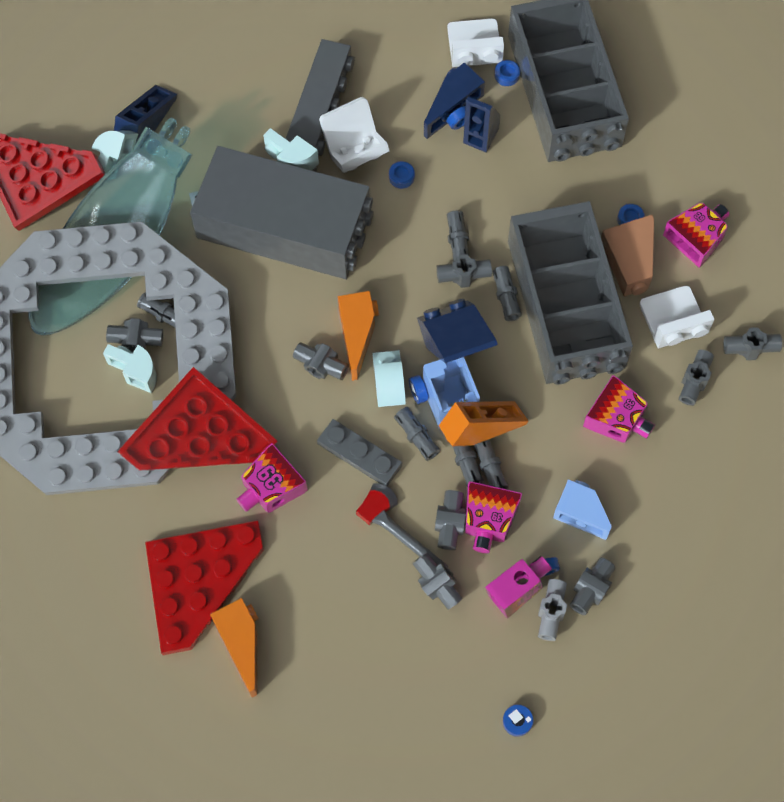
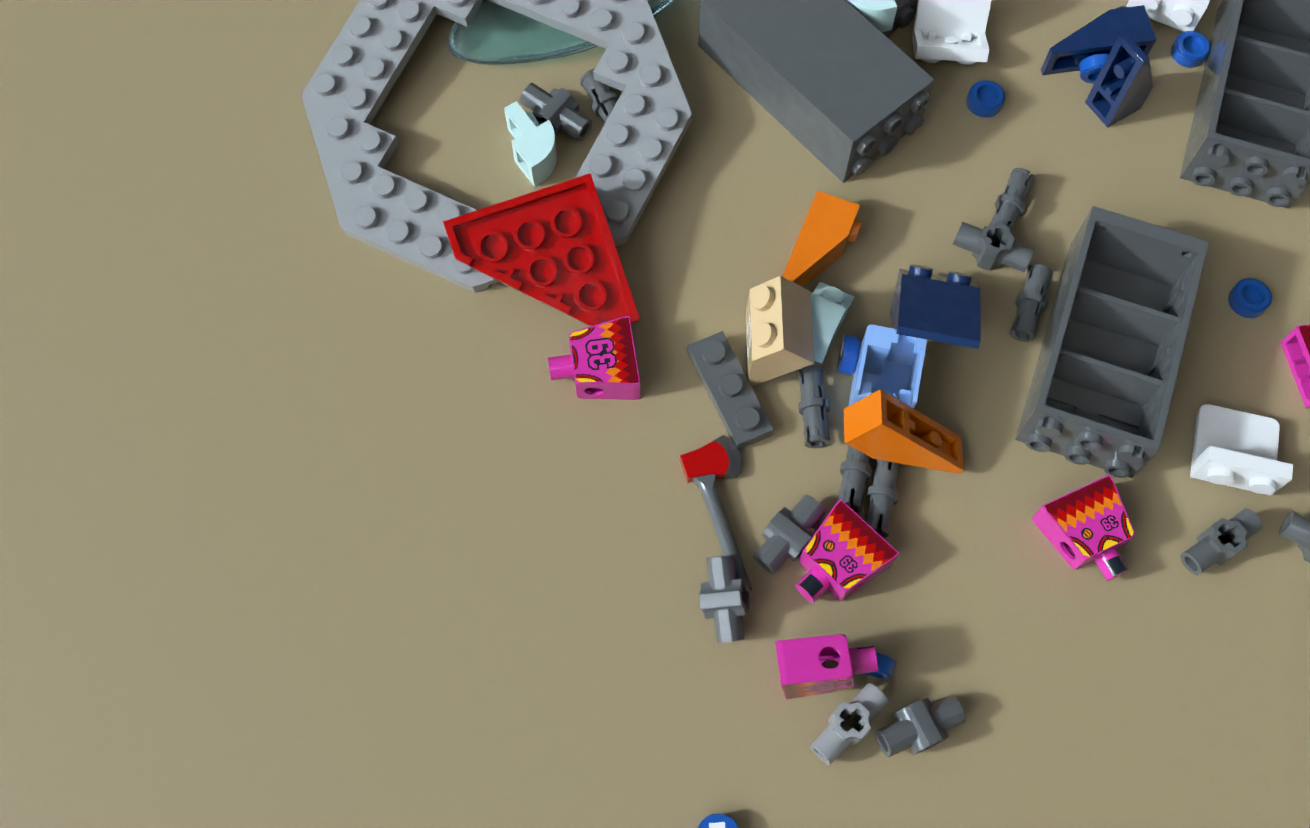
camera: 30 degrees right, 0 degrees up
(195, 577) = (442, 422): red plate -> none
(239, 635) = (445, 524): orange slope -> none
(321, 361) = (749, 255): dark grey axle -> none
(368, 400) = (778, 330): none -> tan slope
(582, 509) = (966, 620): light blue slope -> none
(631, 254) = (1223, 340): nougat slope -> none

